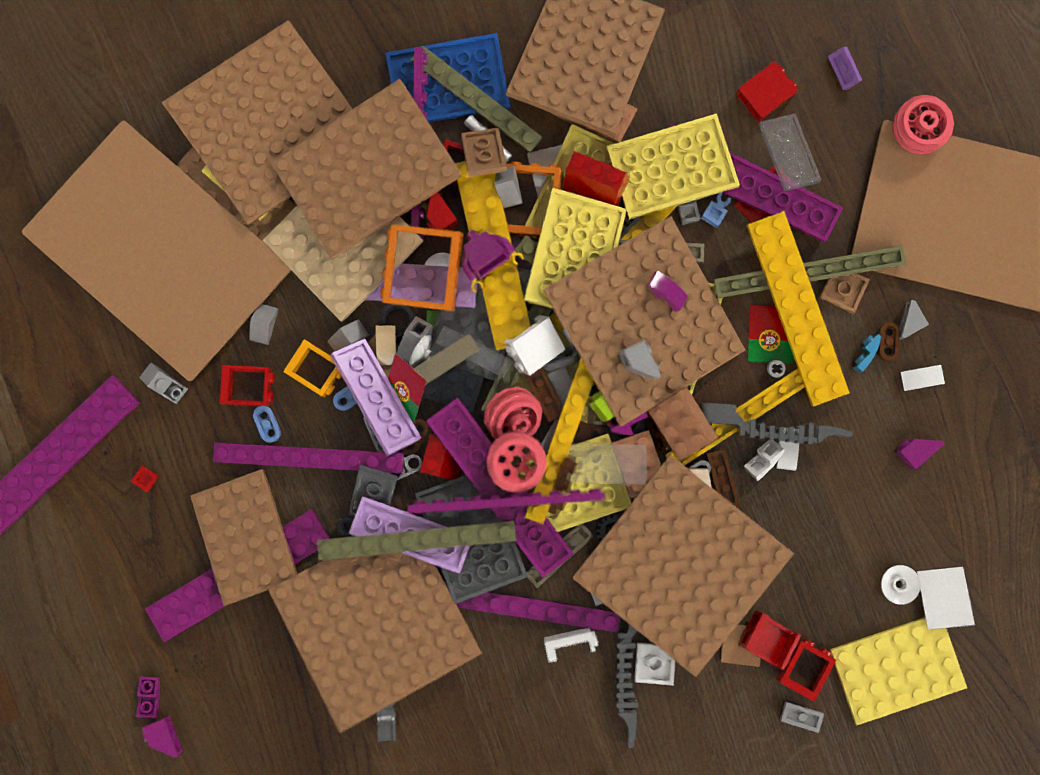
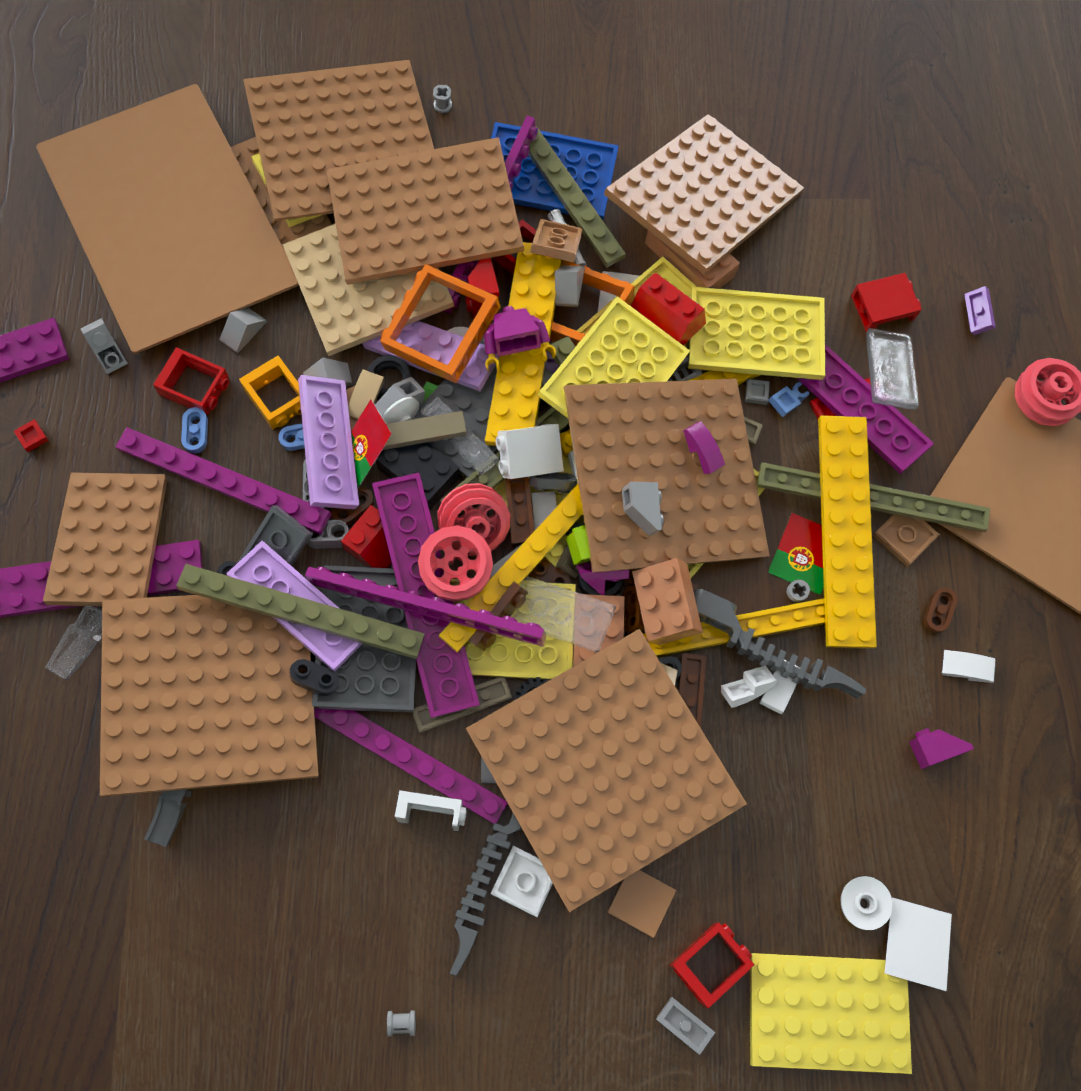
camera: 10 degrees right, 15 degrees down
(261, 622) = (77, 642): none -> clear slope
(334, 53) = (442, 99): none -> light grey bush
(447, 584) = (313, 677): none -> black plate
(769, 640) = (678, 907): red panel -> none
(869, 349) = (917, 606): dark azure slope -> none
(912, 319) = (976, 597): light grey slope -> none

